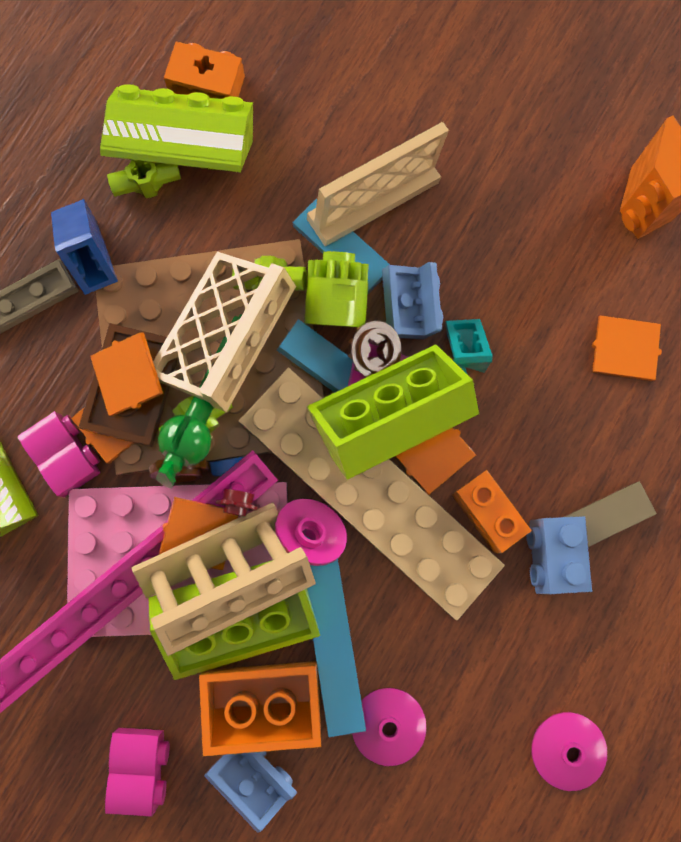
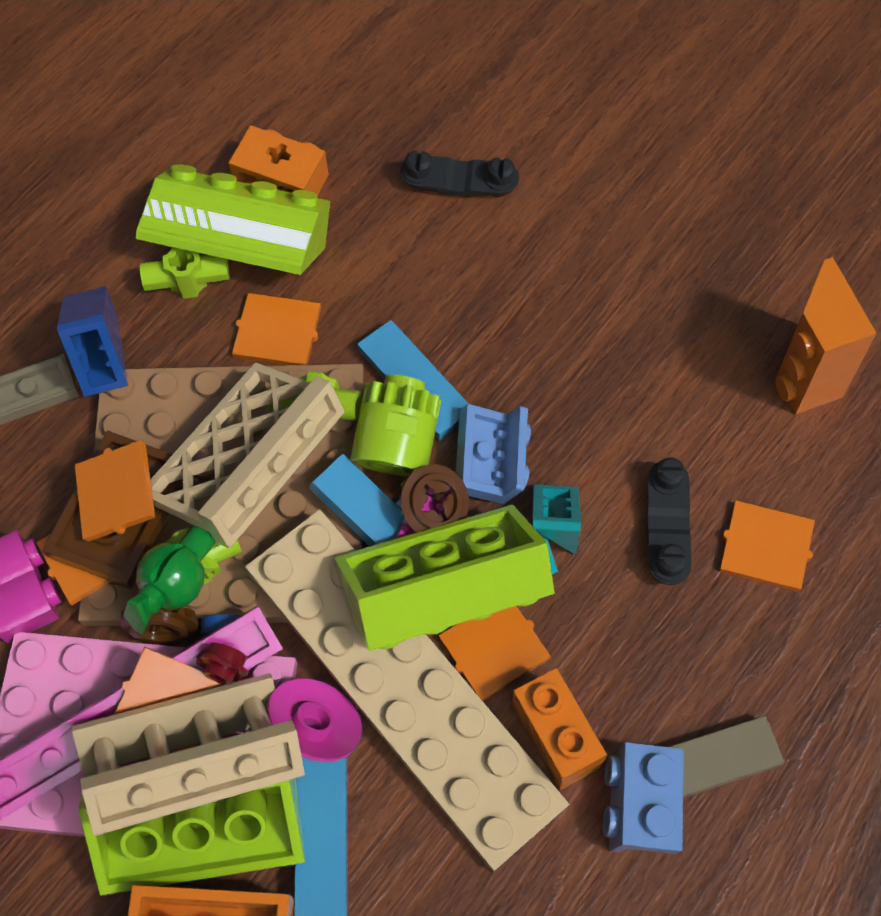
camera: 10 degrees right, 15 degrees down
(226, 217) = (276, 330): none -> orange piece
(352, 67) = (459, 177): none -> black piece
(378, 186) = (456, 325): tan fence -> none
(552, 339) = (669, 521): none -> black piece

